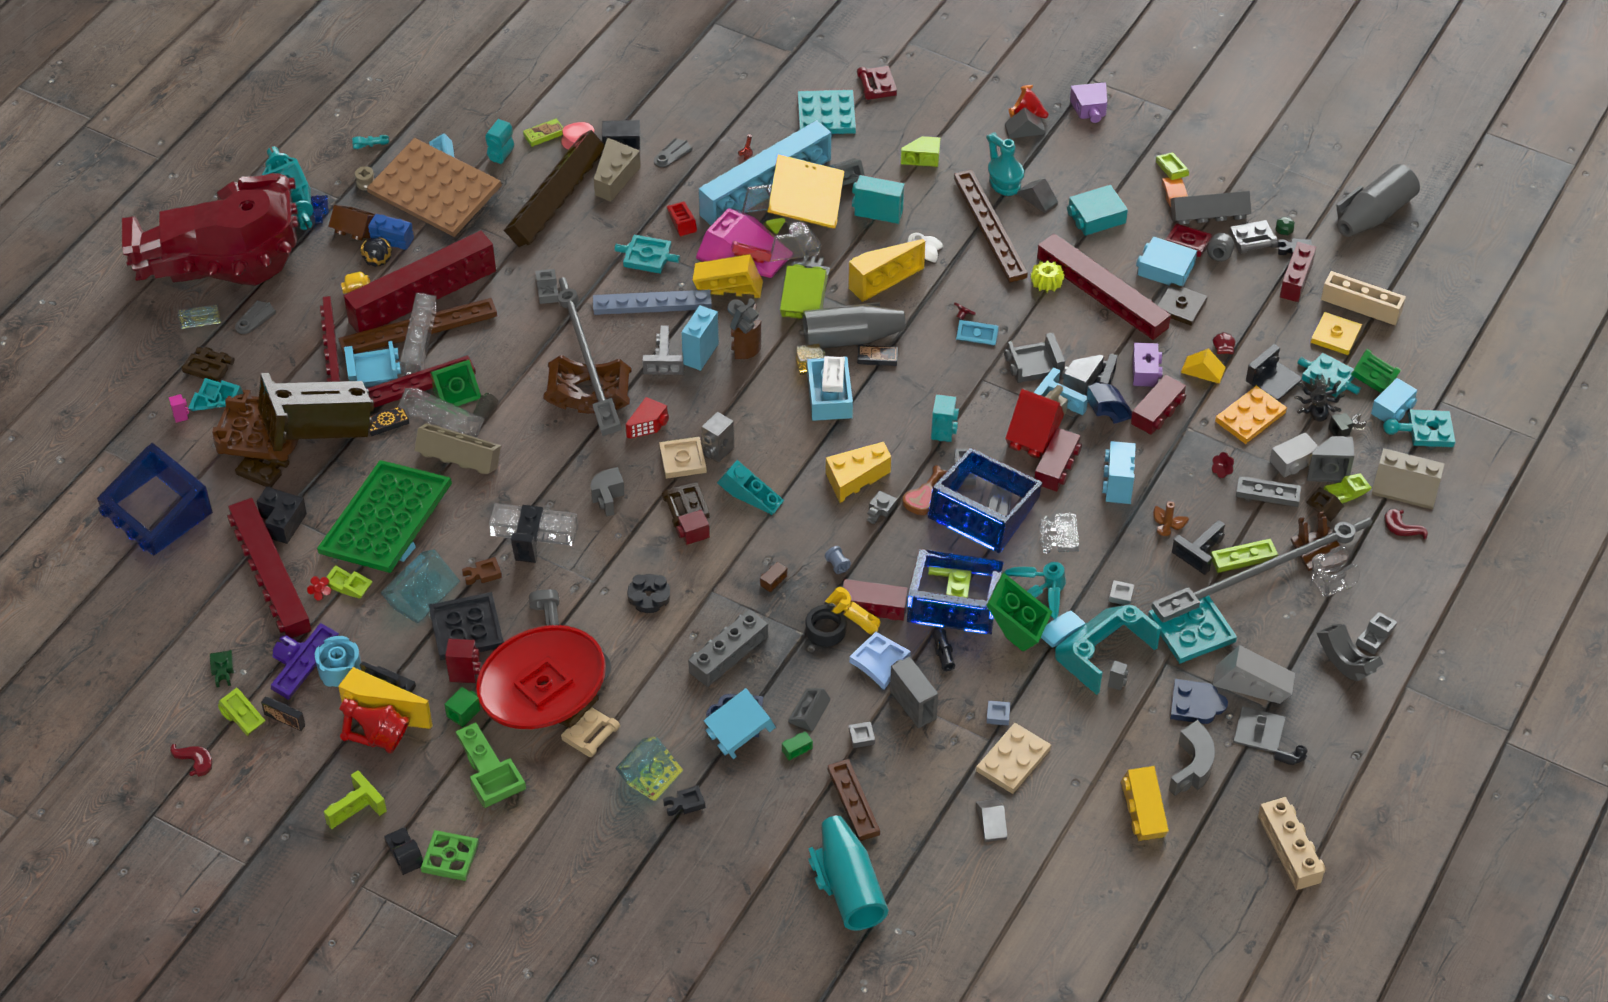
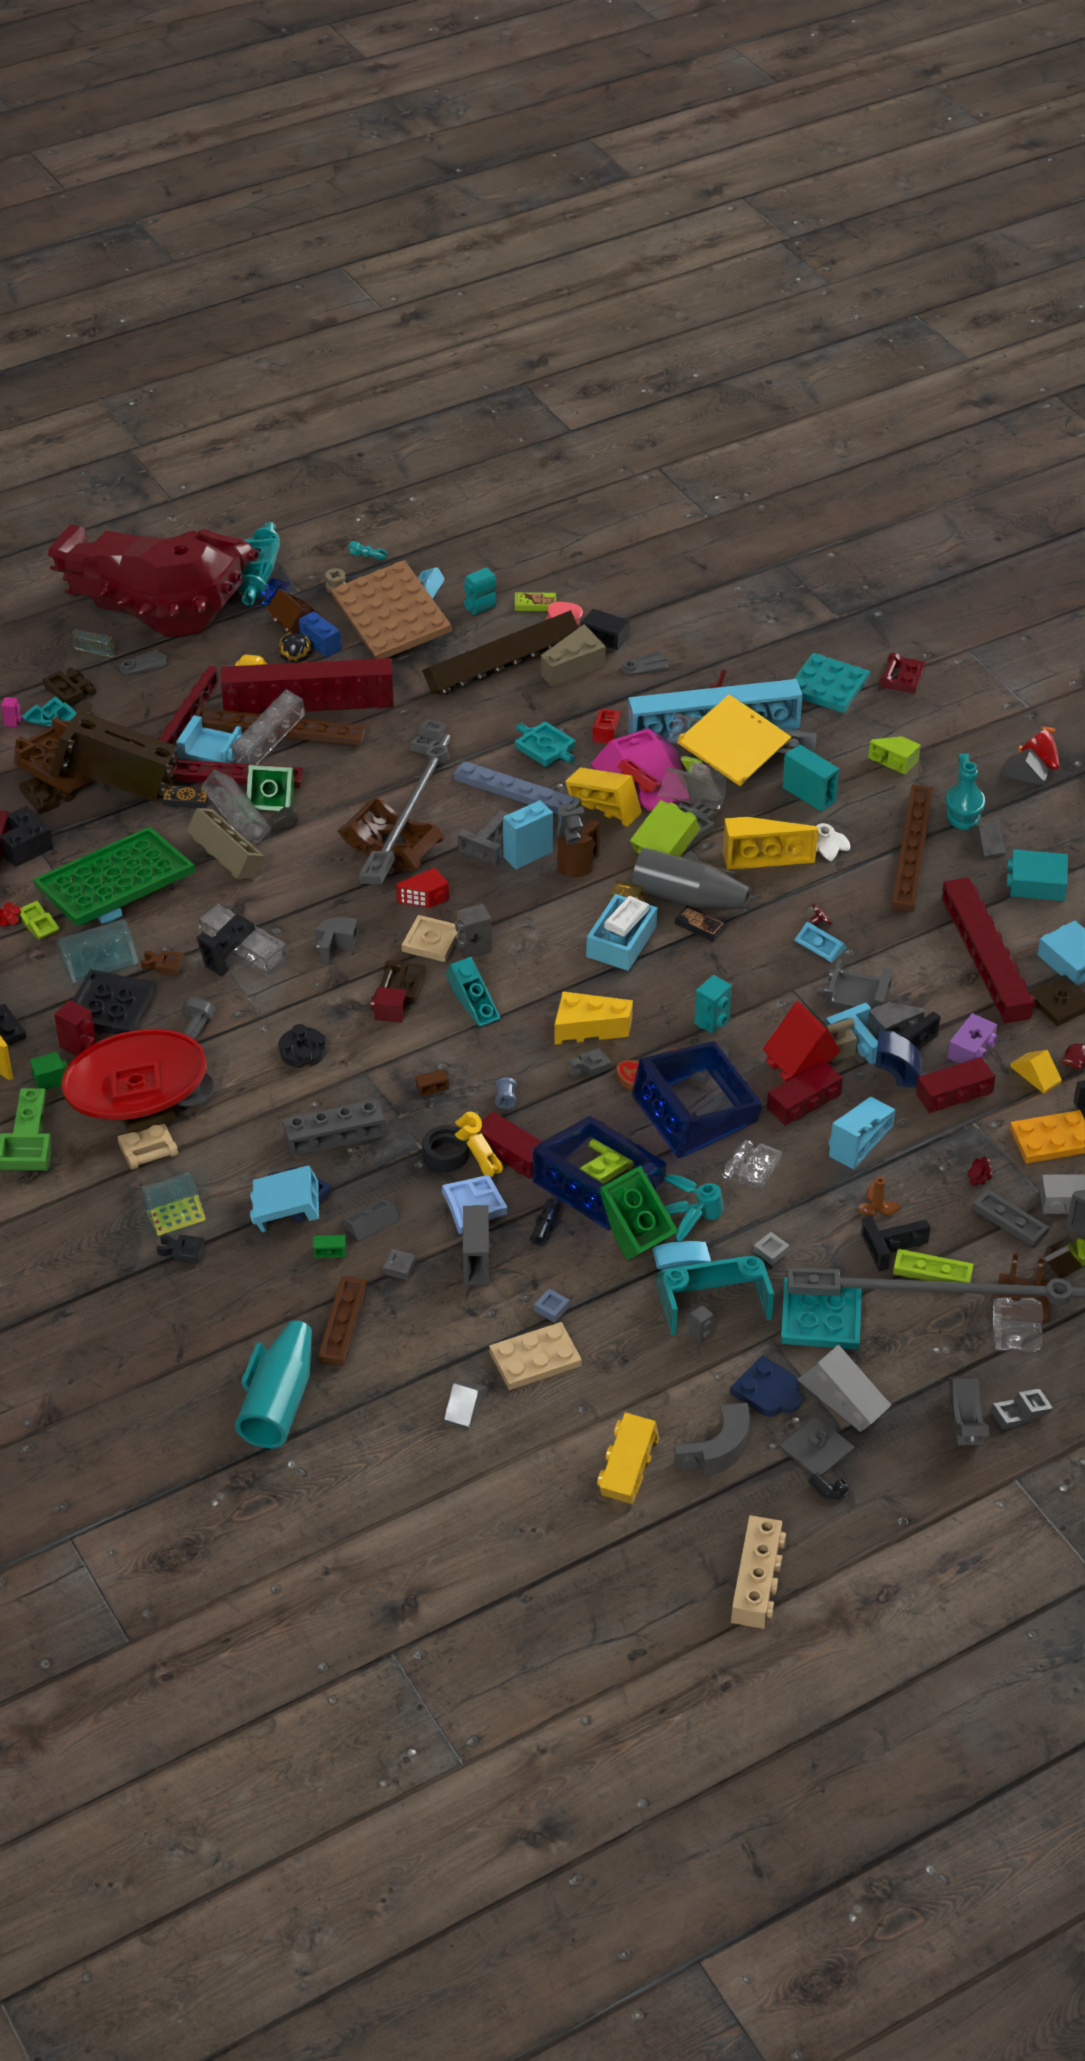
camera: 30 degrees right, 5 degrees down
(1047, 276) = (933, 917): neon yellow gear -> none

